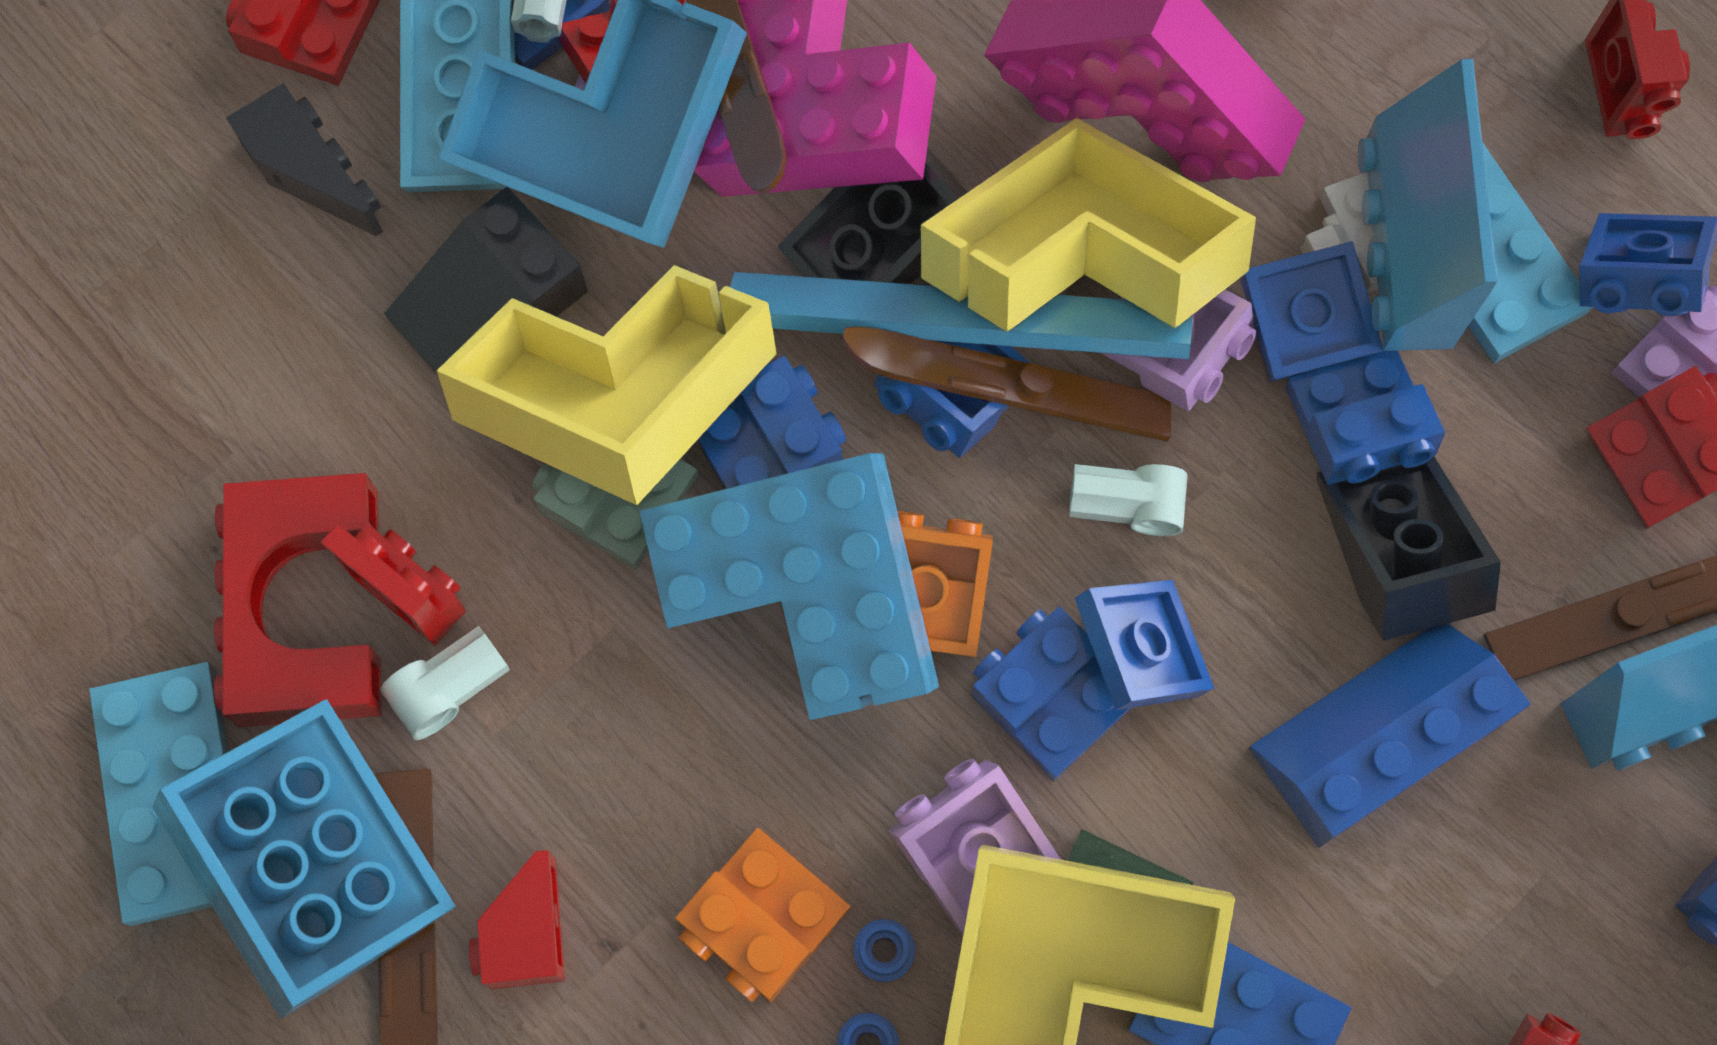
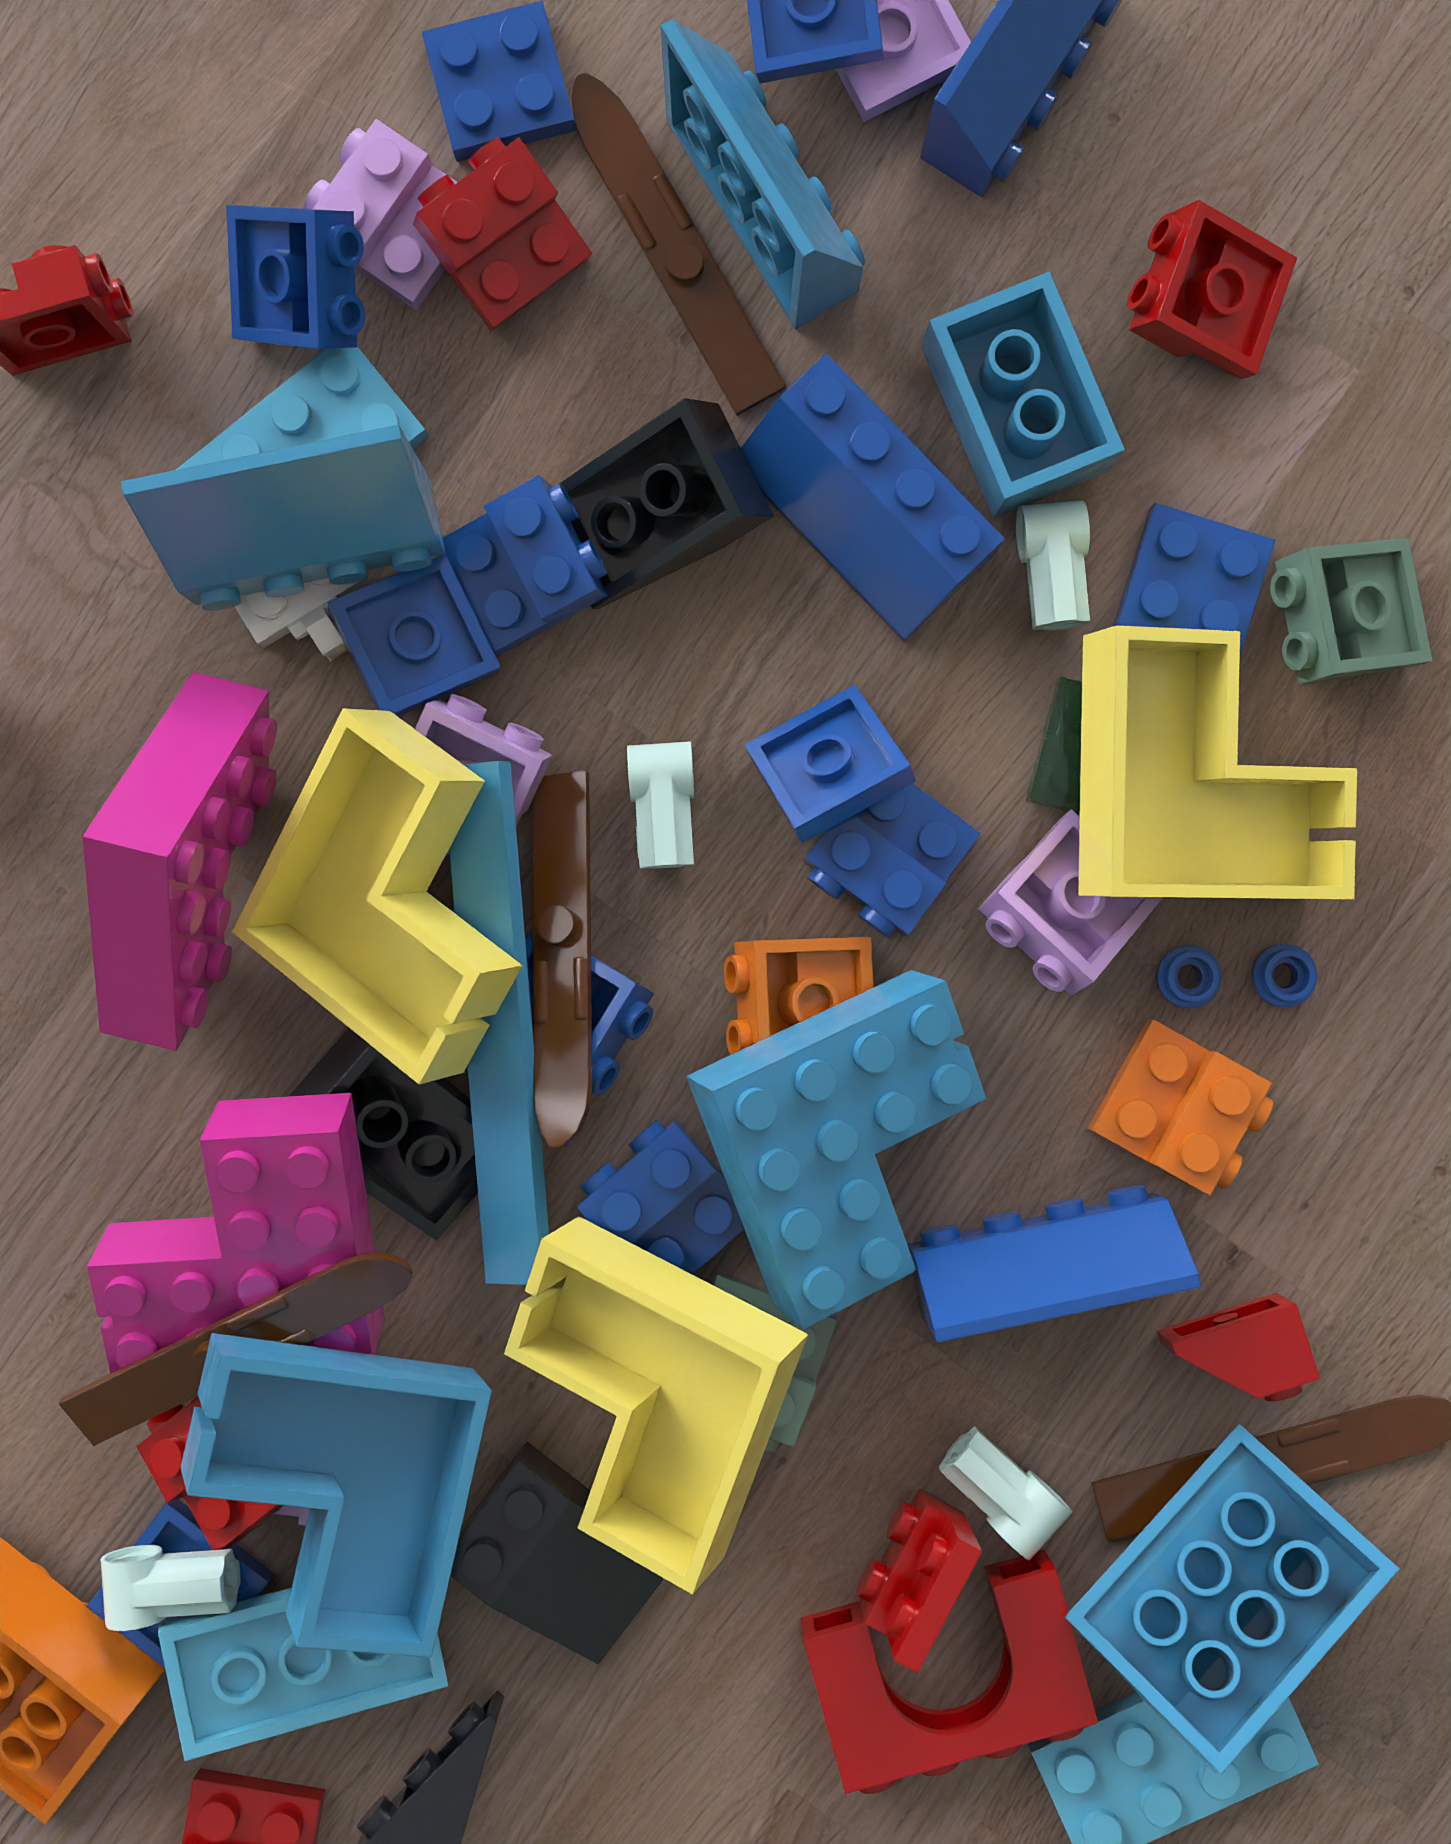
camera: 105 degrees left, 15 degrees up
(646, 752) = (1050, 1263): none -> blue slope
(1321, 897) = (1053, 545): none -> light aqua piece
(1471, 886) = (1021, 394): none -> dark azure brick

